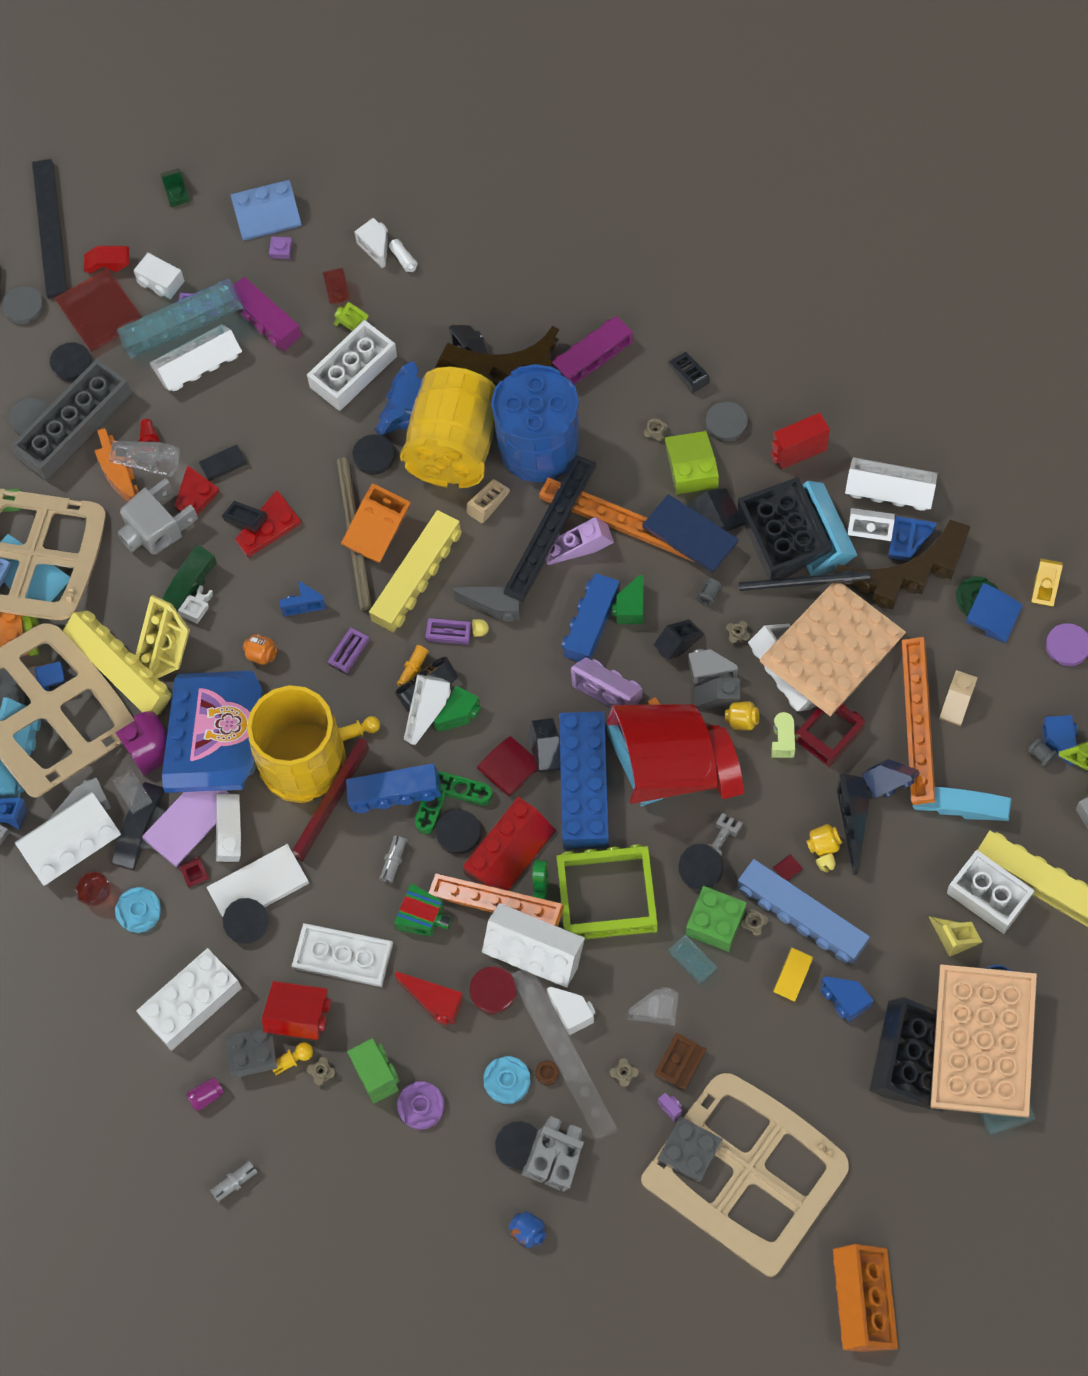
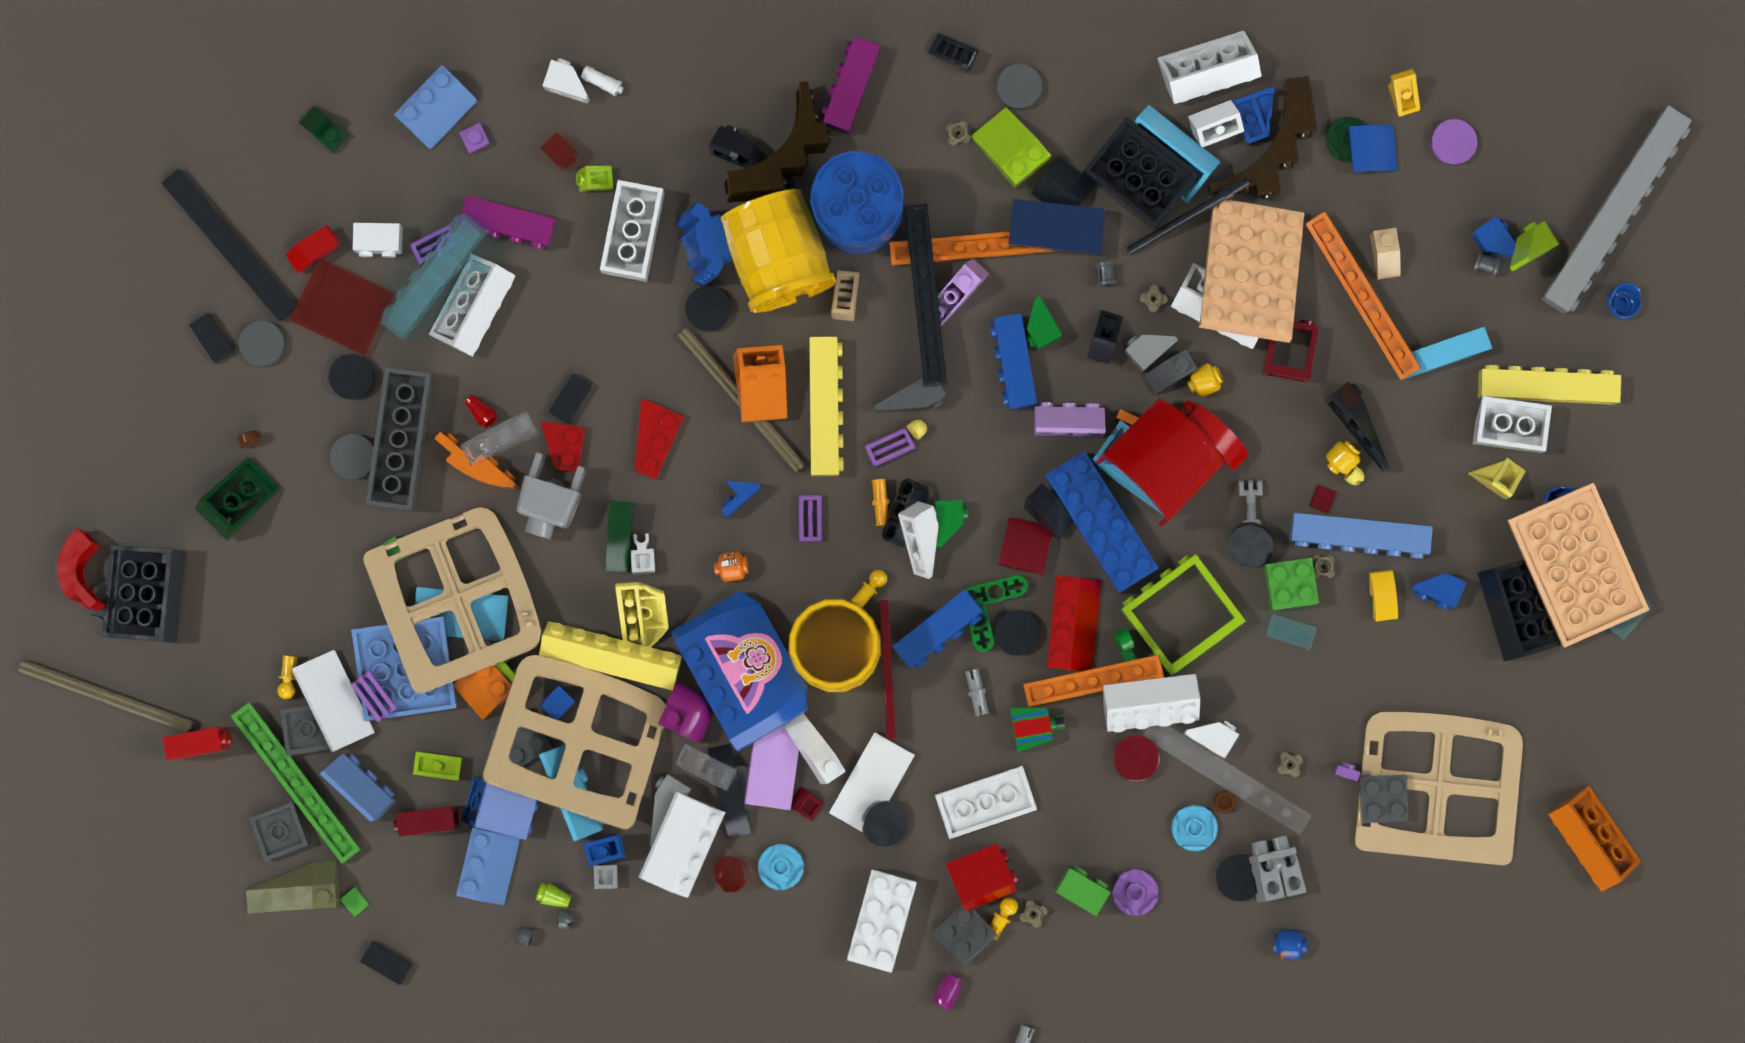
camera: 30 degrees left, 20 degrees up
(245, 516) = (630, 443): black tile -> none
(435, 999) = (1095, 796): red slope -> none
(656, 1008) = (1286, 691): clear slope -> none
(680, 1062) = (1332, 728): reddish brown plate -> none
(785, 742) = (1253, 376): yellowish green leg -> none
(800, 441) = (1104, 75): red brick -> none
(887, 776) = (1369, 367): dark blue slope -> none

